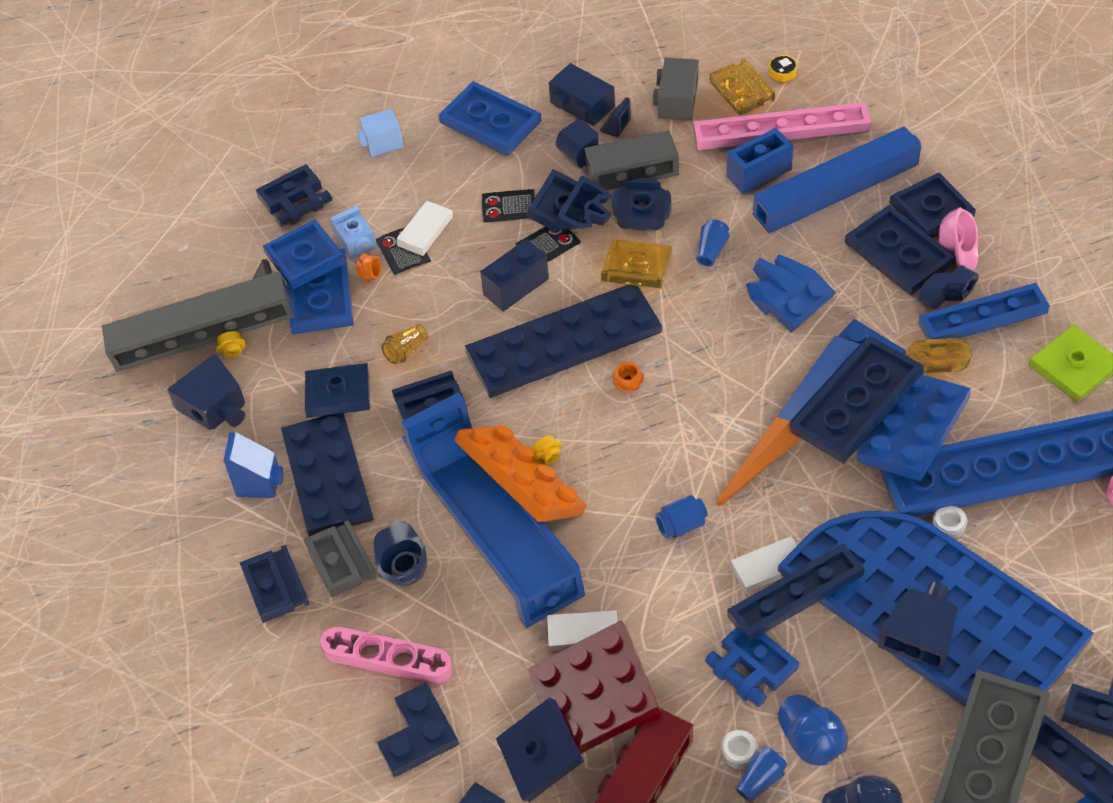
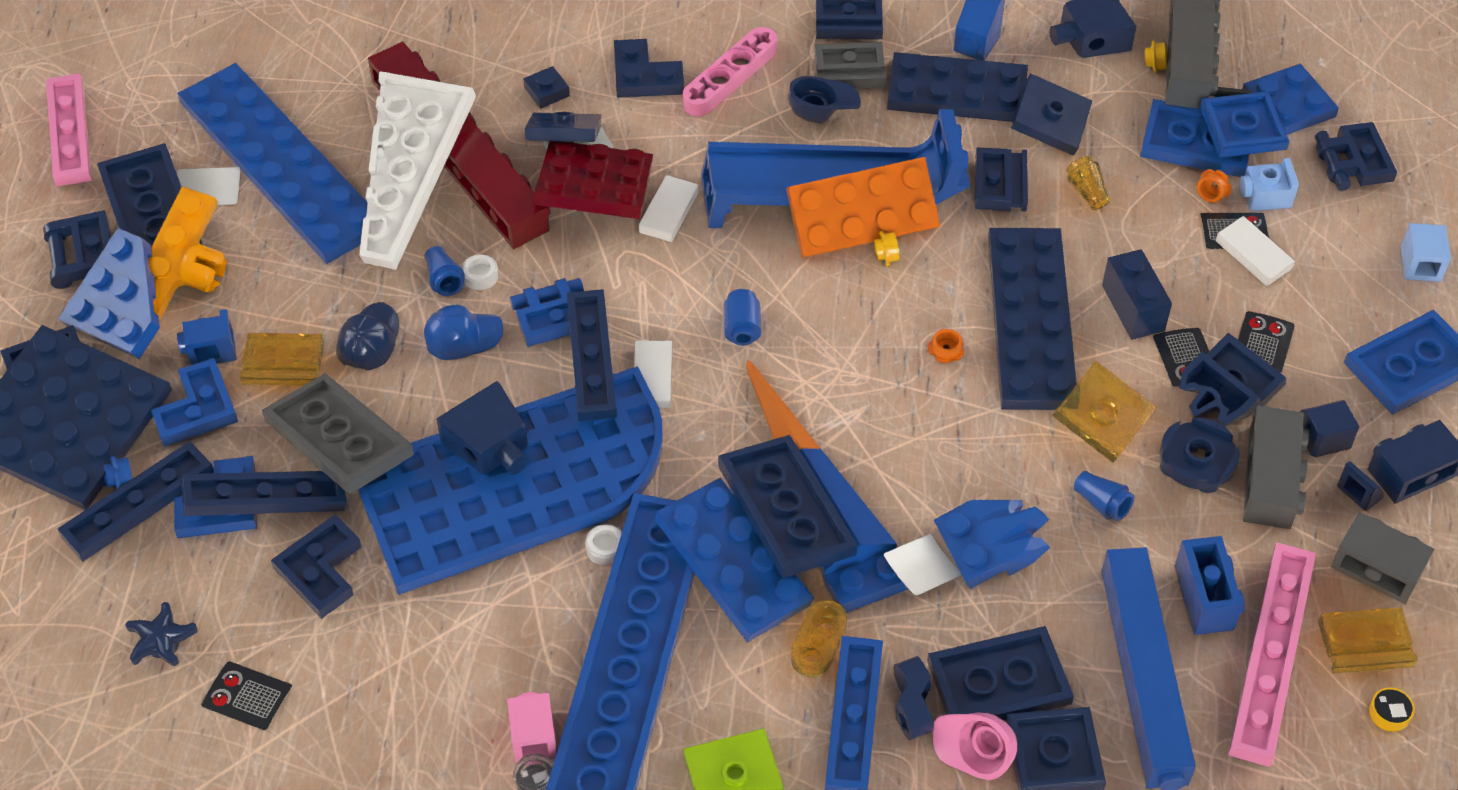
camera: 110 degrees right, 0 degrees up
(238, 251) = (1296, 97): none -> blue plate
(840, 318) = (921, 565): none -> white sticker

